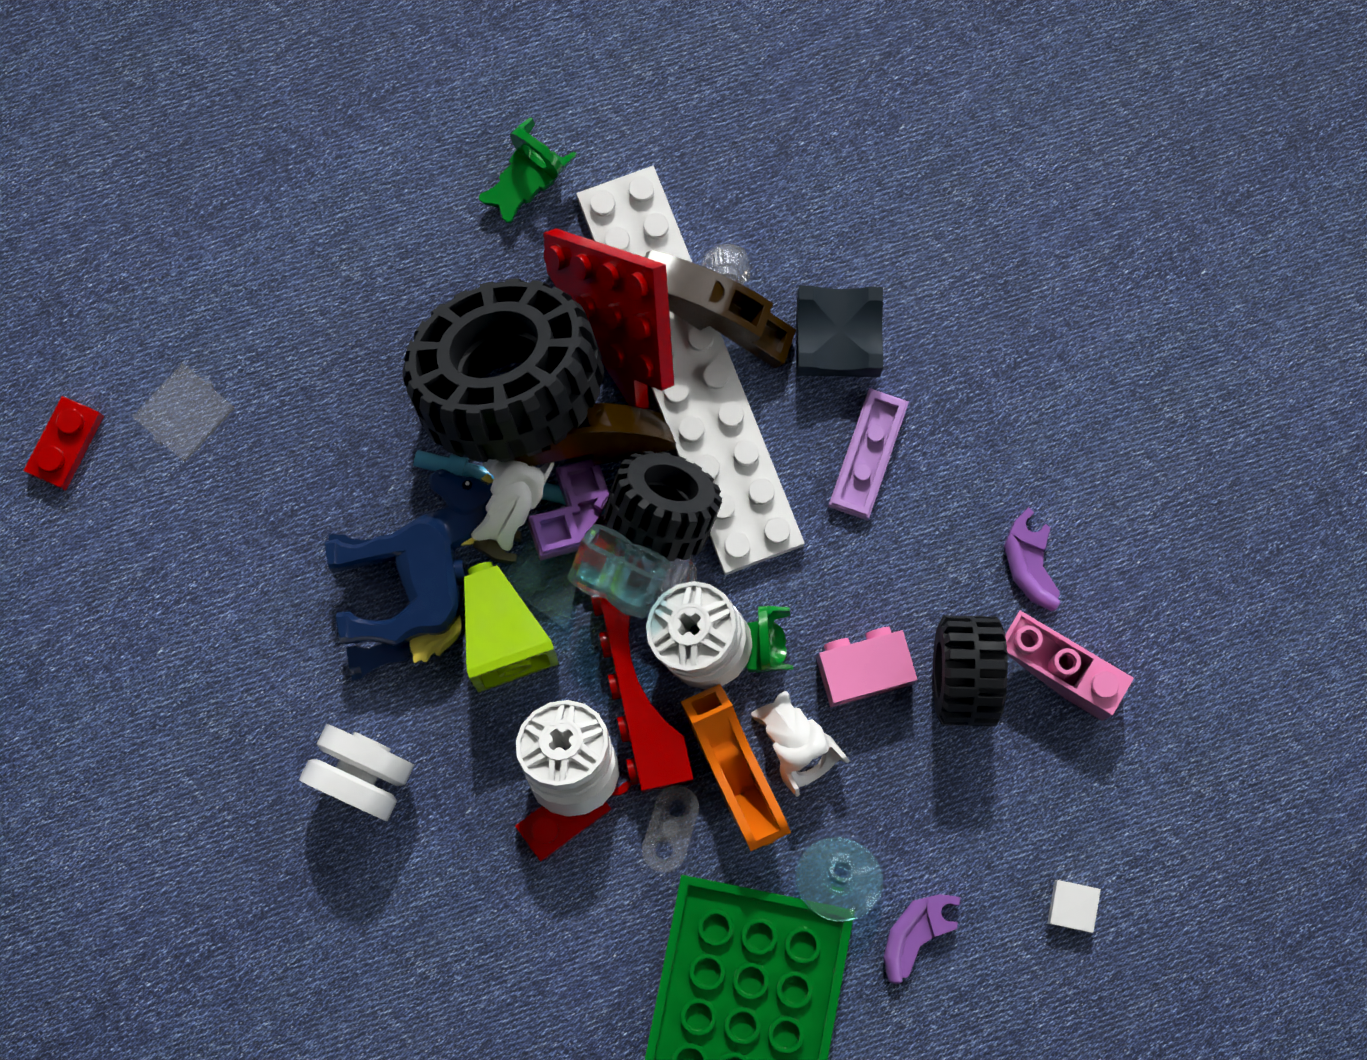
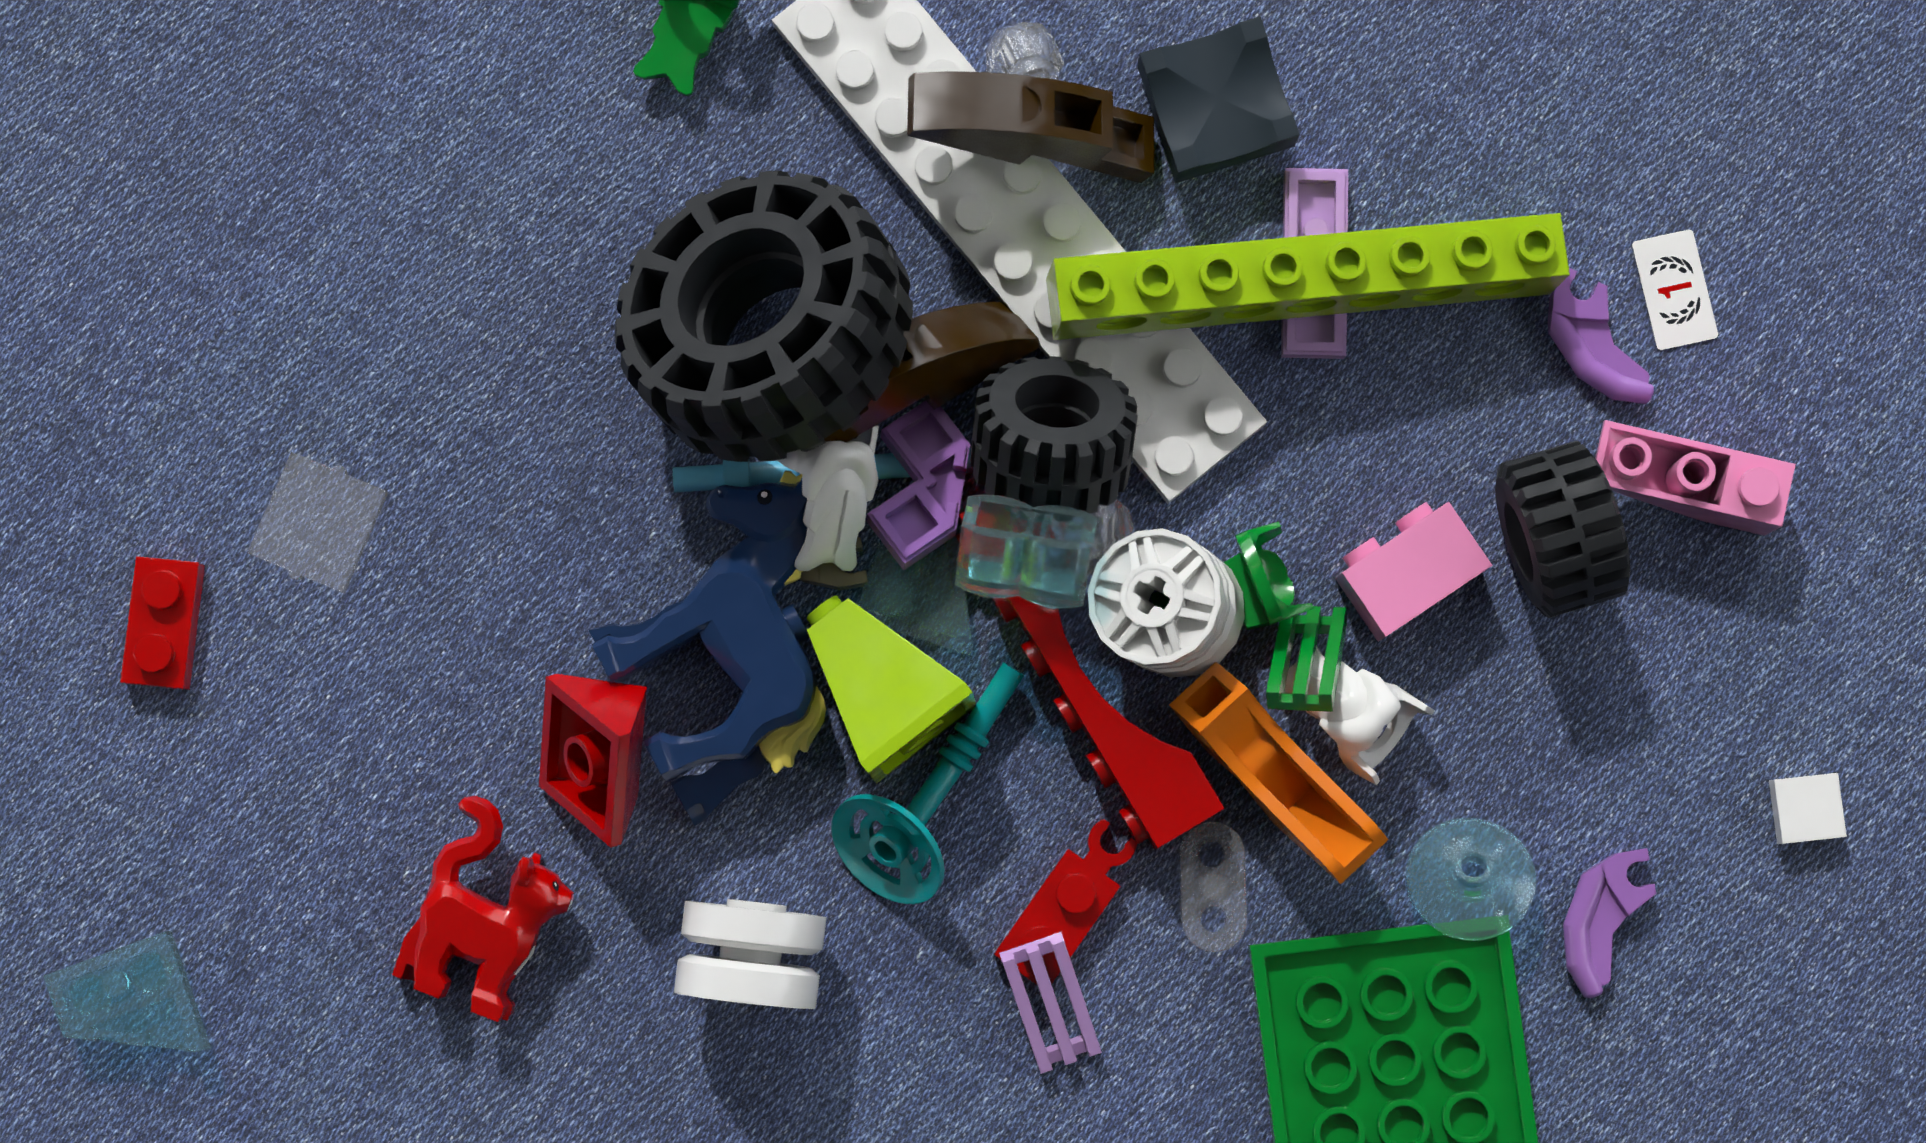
camera: 10 degrees left, 5 degrees up
(188, 697) = (475, 928): none -> red animal
(304, 610) = (593, 751): none -> red slope
(484, 725) = (906, 827): none -> teal dish
(539, 903) = (1066, 1048): none -> lavender tile
(568, 779) = (1047, 869): white wheel -> none
(625, 307) = (902, 162): red wing -> none
(787, 682) = (1310, 626): none -> green tile
(858, 458) = (1306, 276): none -> lime brick
(1094, 545) = (1675, 289): none -> white sticker

